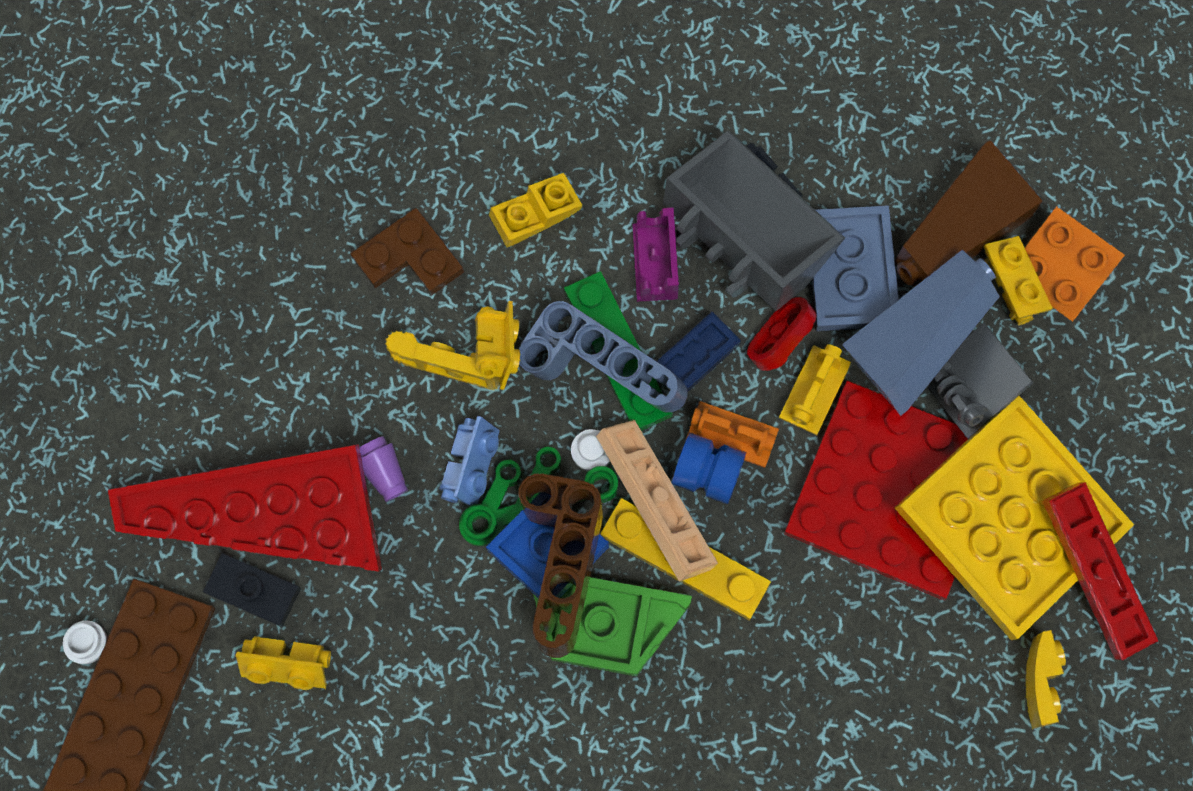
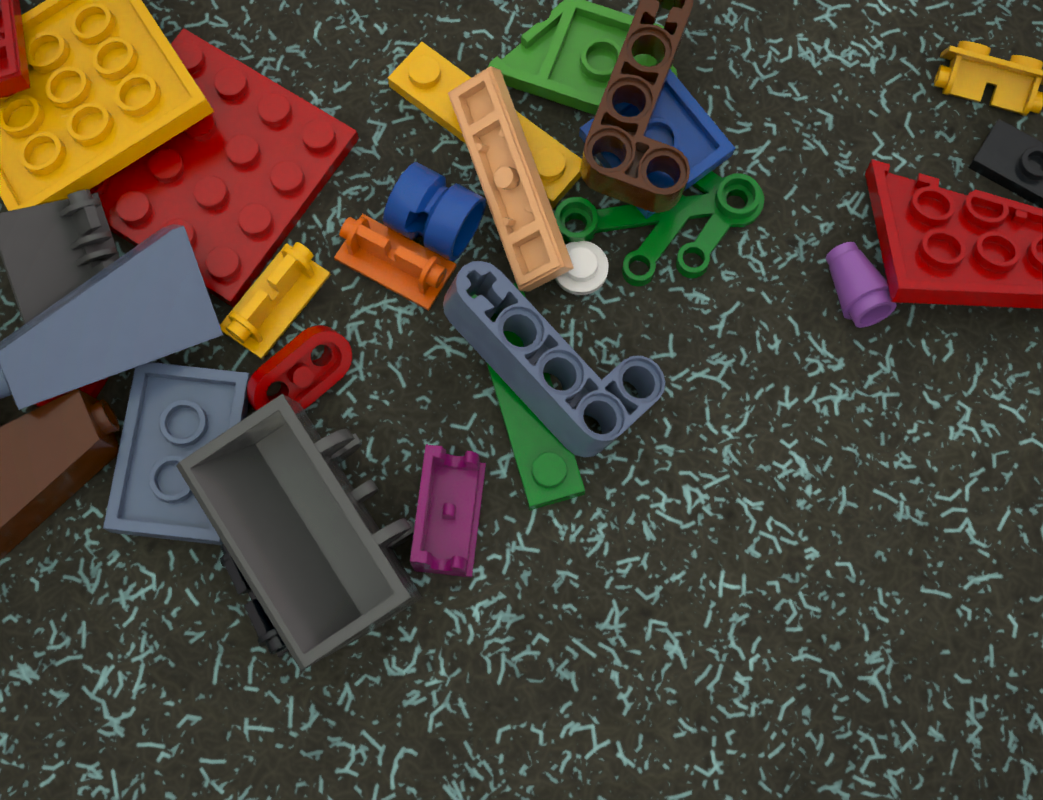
camera: 175 degrees left, 0 degrees up
(410, 244) = (799, 599): reddish brown plate -> none
(437, 359) = (767, 410): yellow hinge -> none
(477, 444) = (750, 255): medium blue hinge -> none
(495, 344) = (689, 386): yellow hinge -> none
(535, 211) = (608, 619): yellow slope -> none
(700, 350) = (418, 369): dark blue plate -> none

